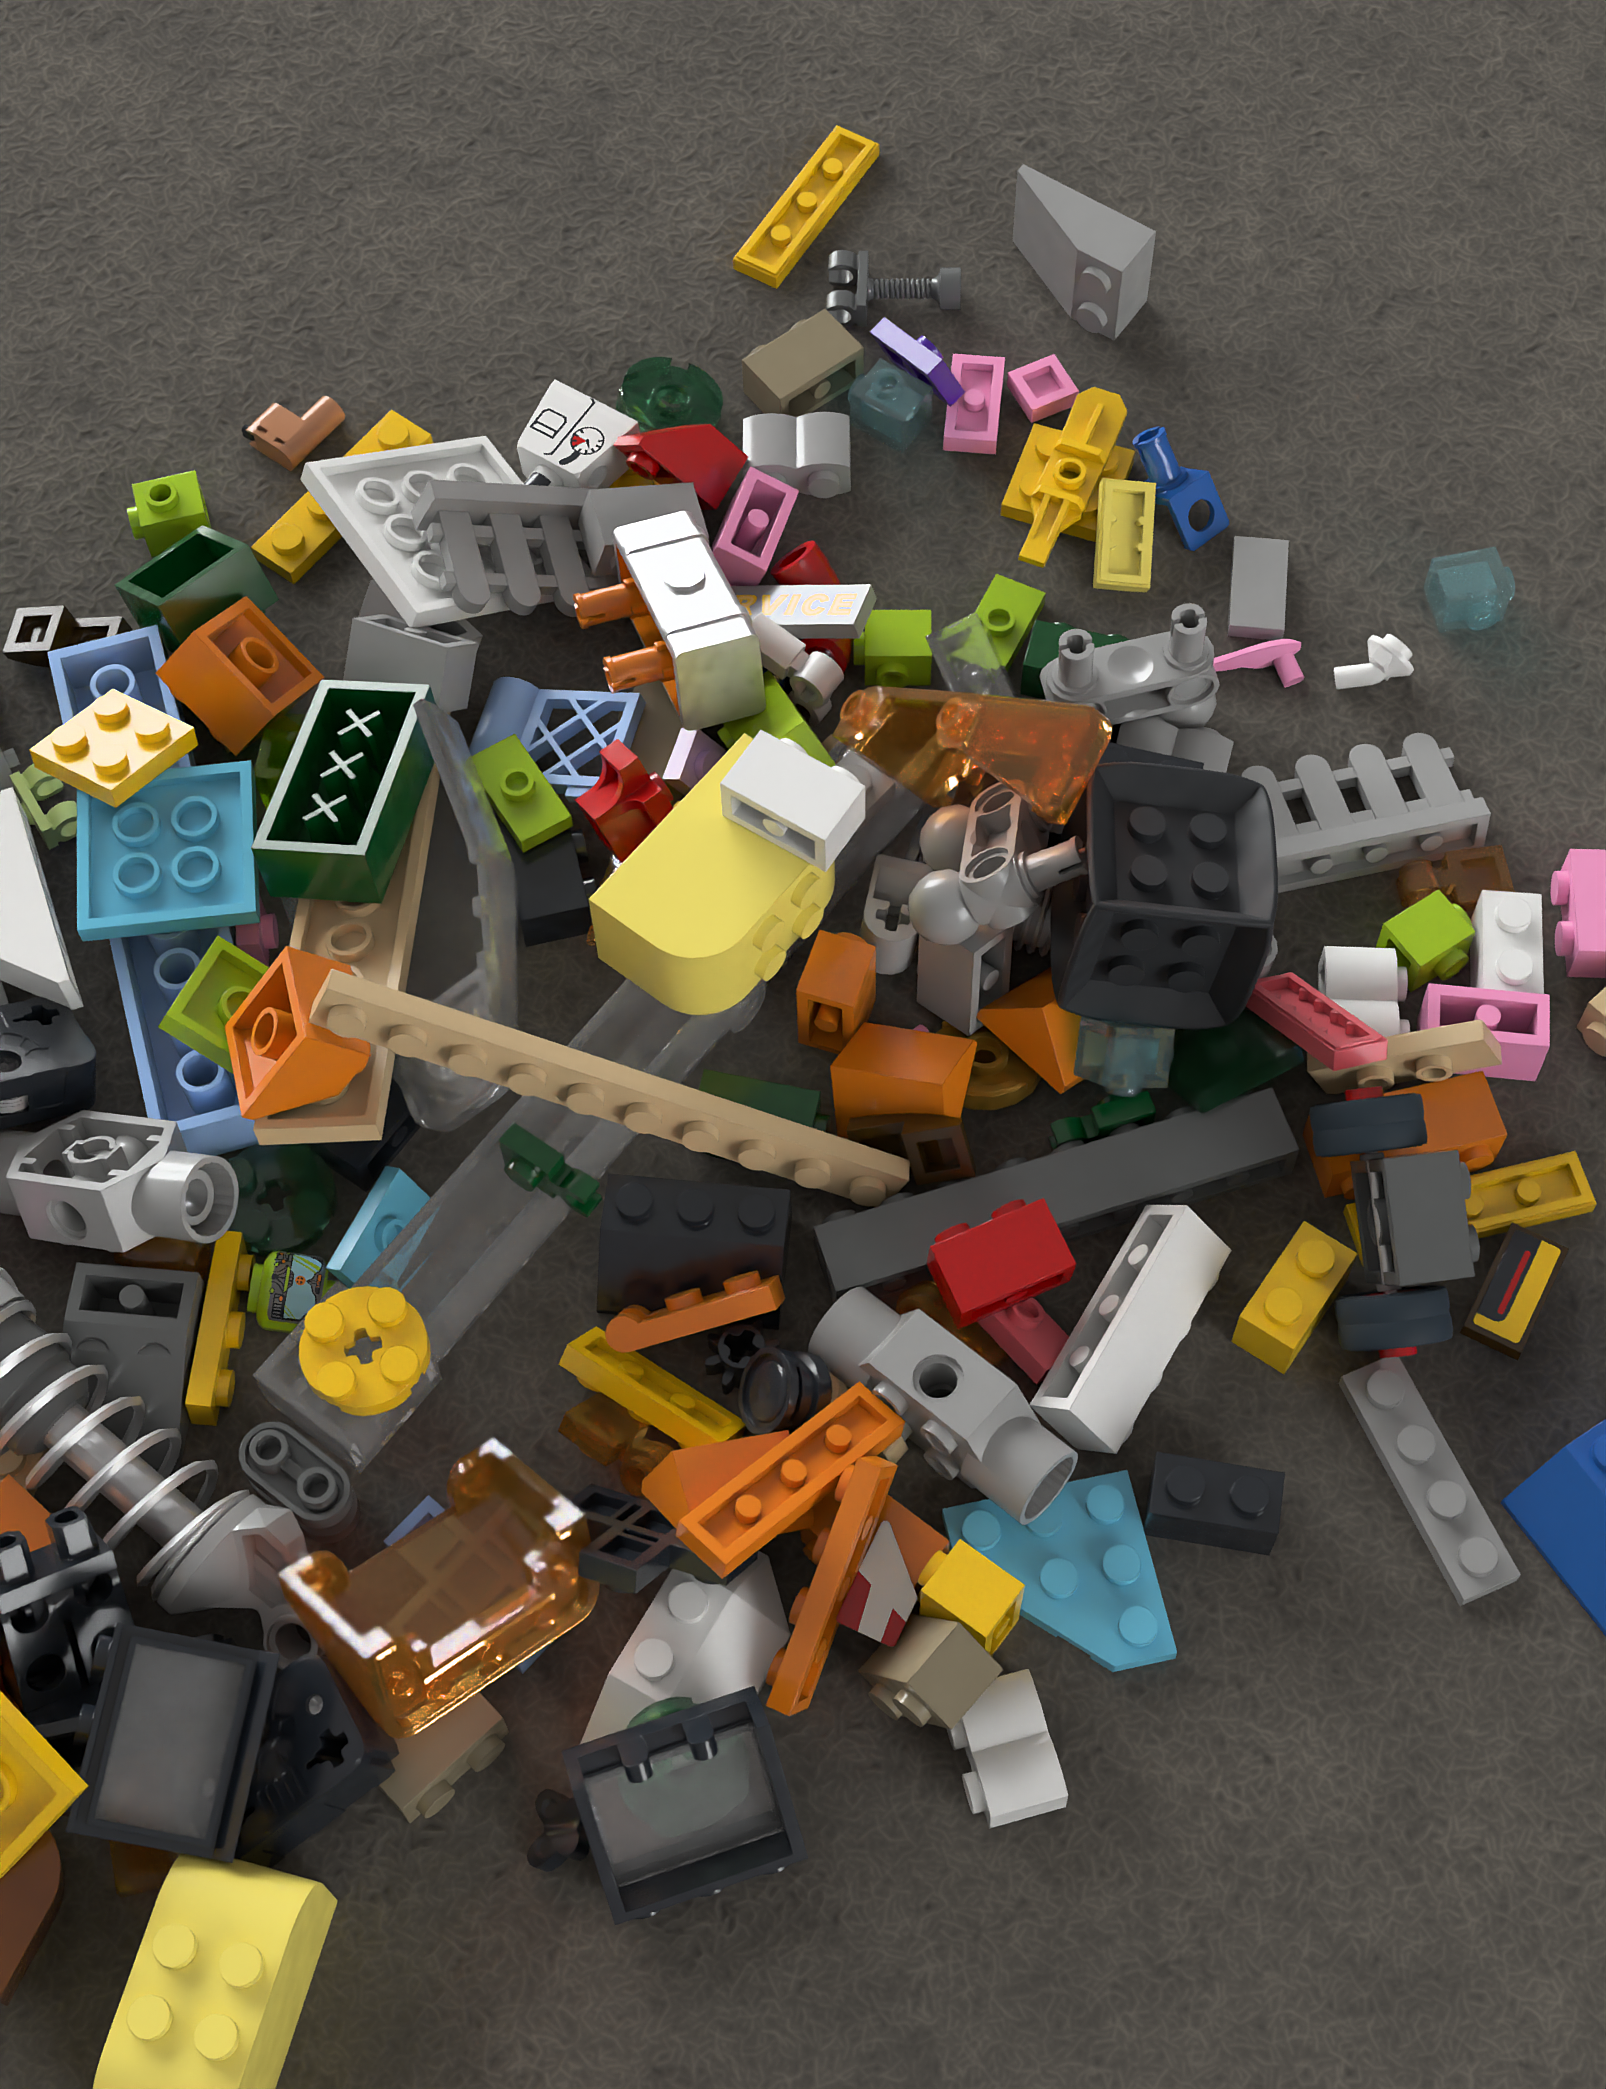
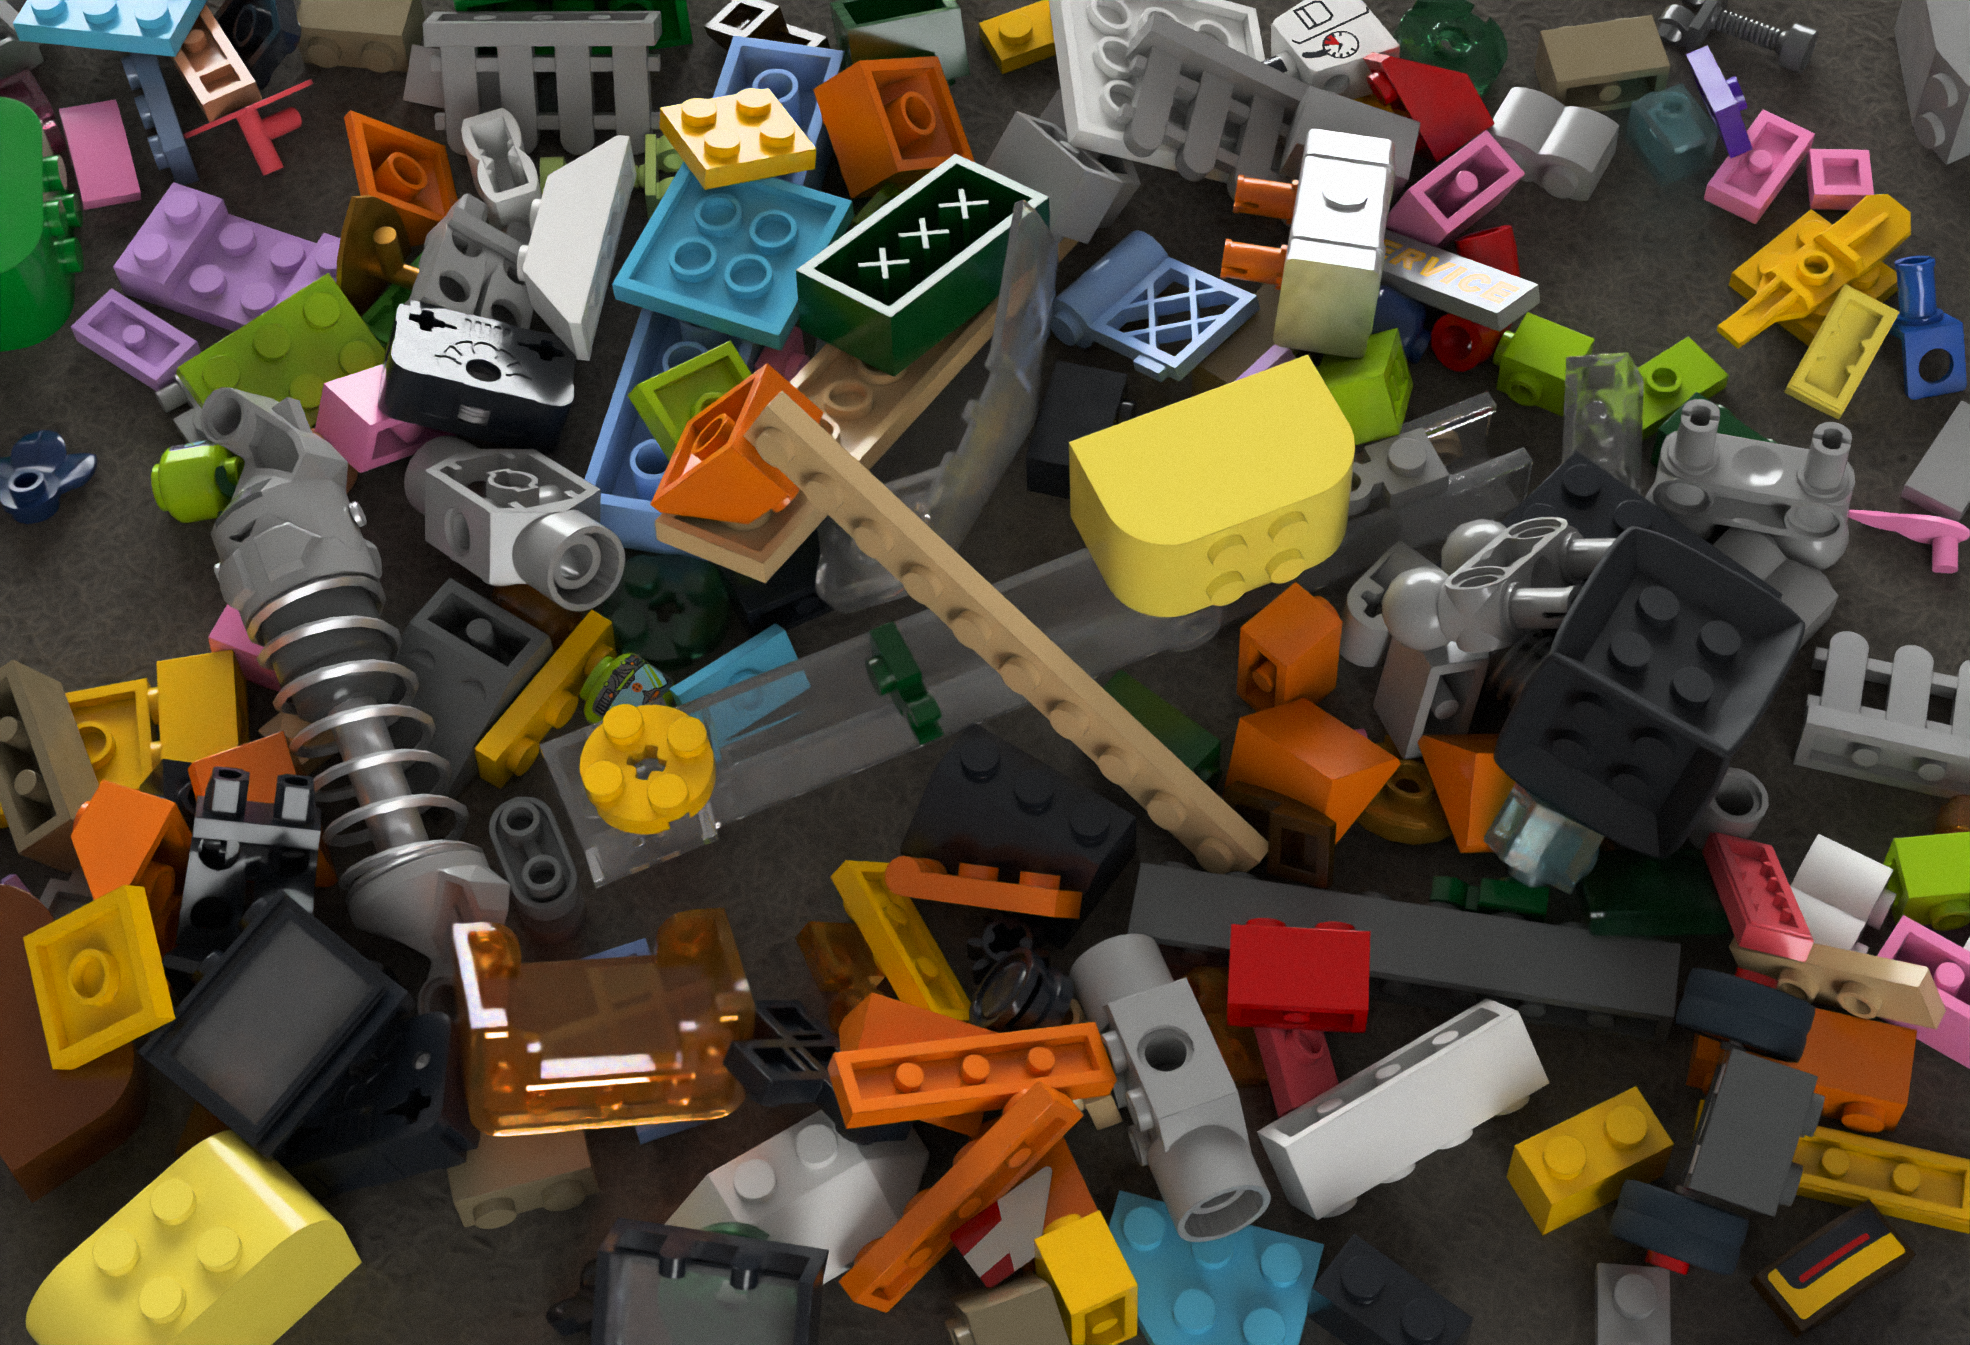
camera: 30 degrees right, 5 degrees down
(521, 793) = (1090, 339): lime plate -> none
(624, 801) = (1181, 374): red brick -> none
(793, 799) = (1313, 431): white brick -> none
(811, 676) = (1434, 349): white bar -> none
(951, 737) = (1525, 451): clear orange windscreen -> none

